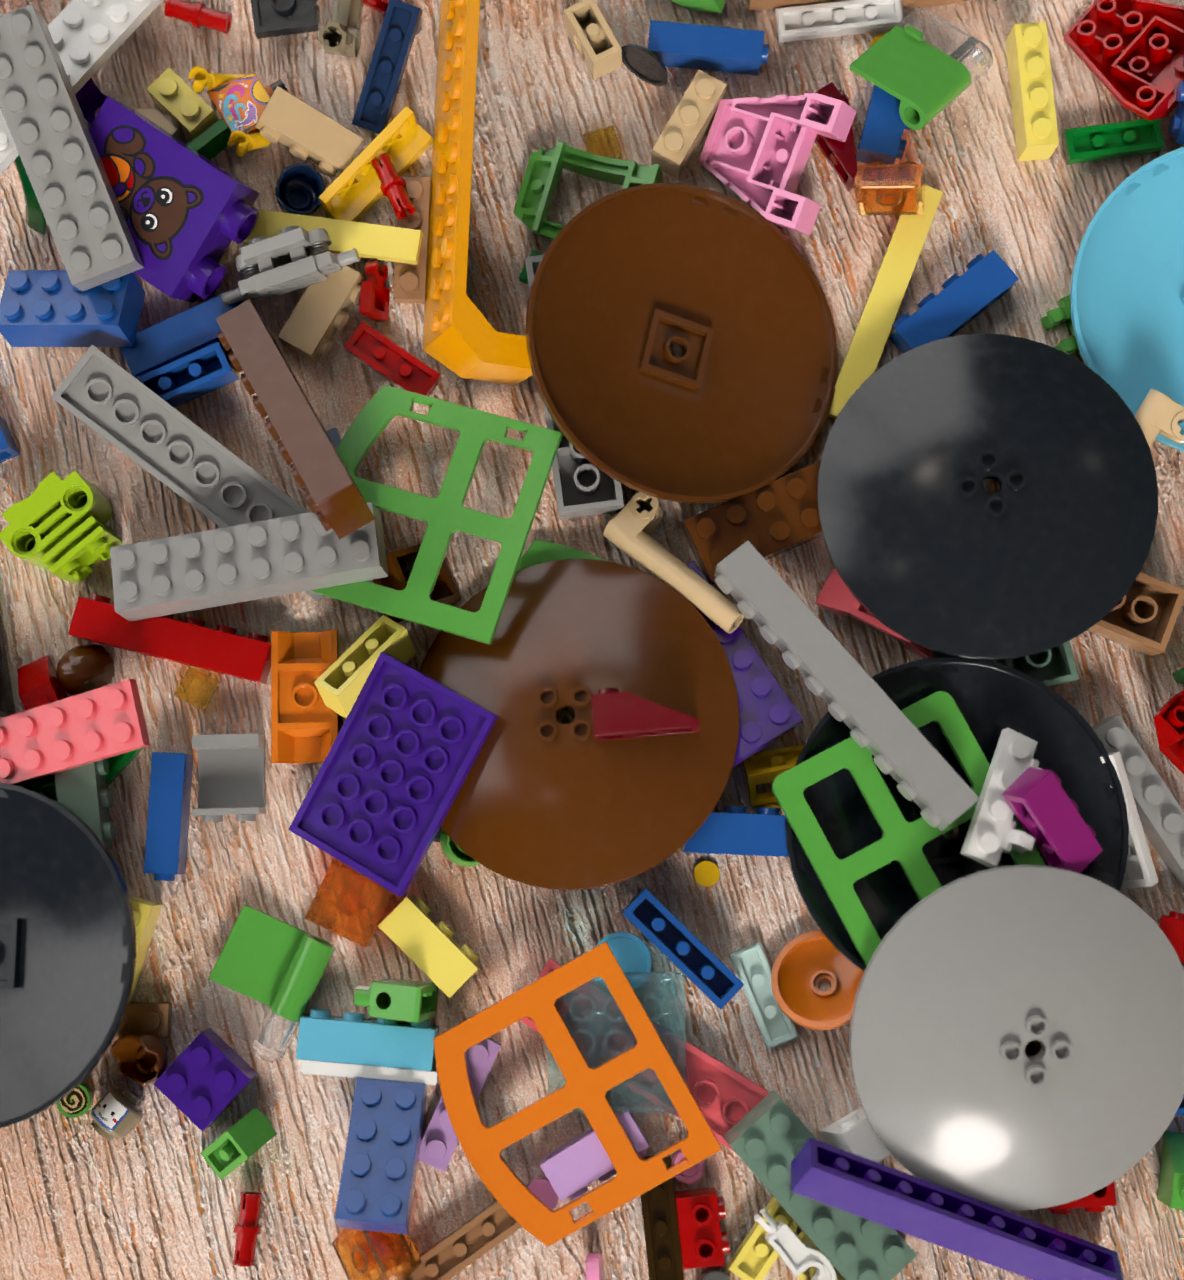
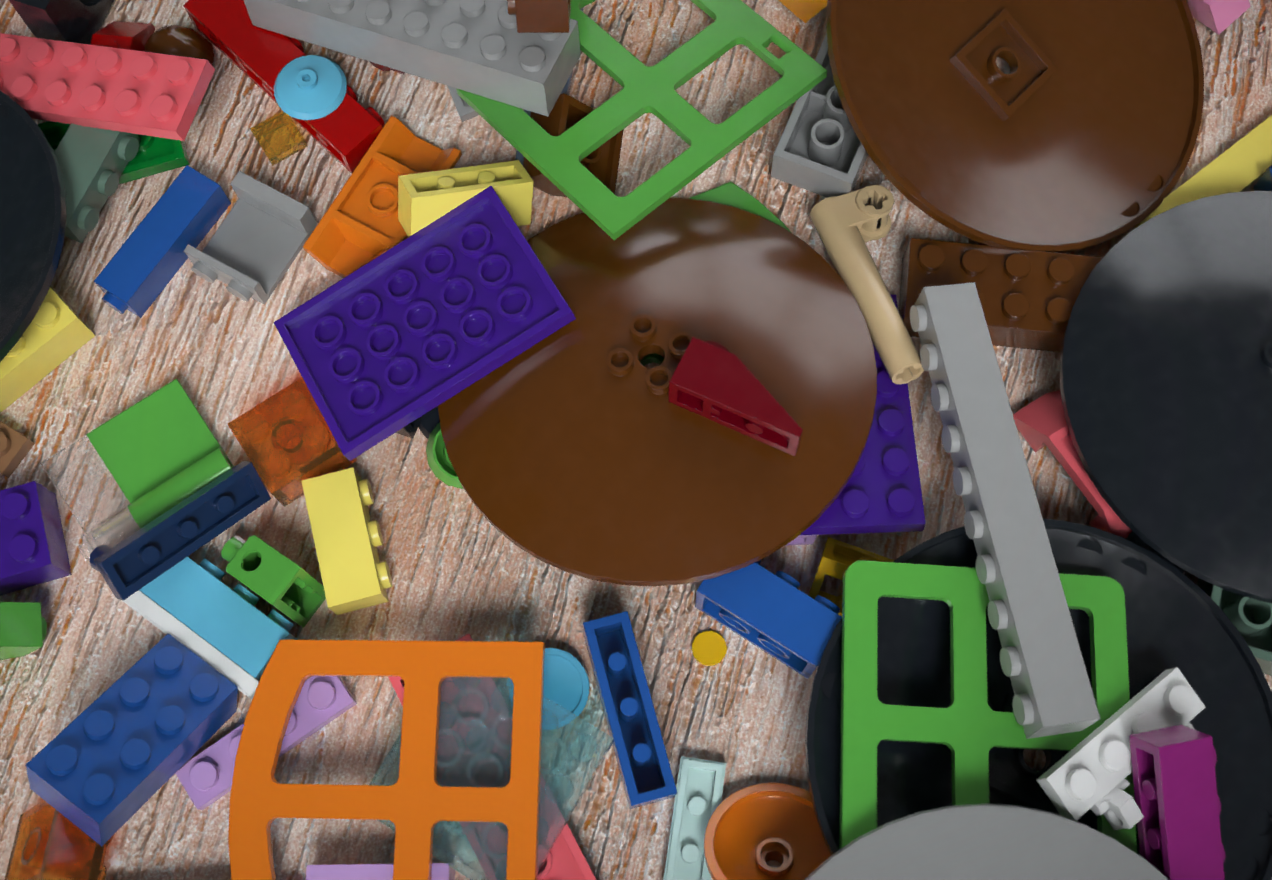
camera: 30 degrees right, 10 degrees down
(201, 644) = (310, 87): none -> medium azure piece
(321, 1009) = (180, 530): none -> dark blue piece

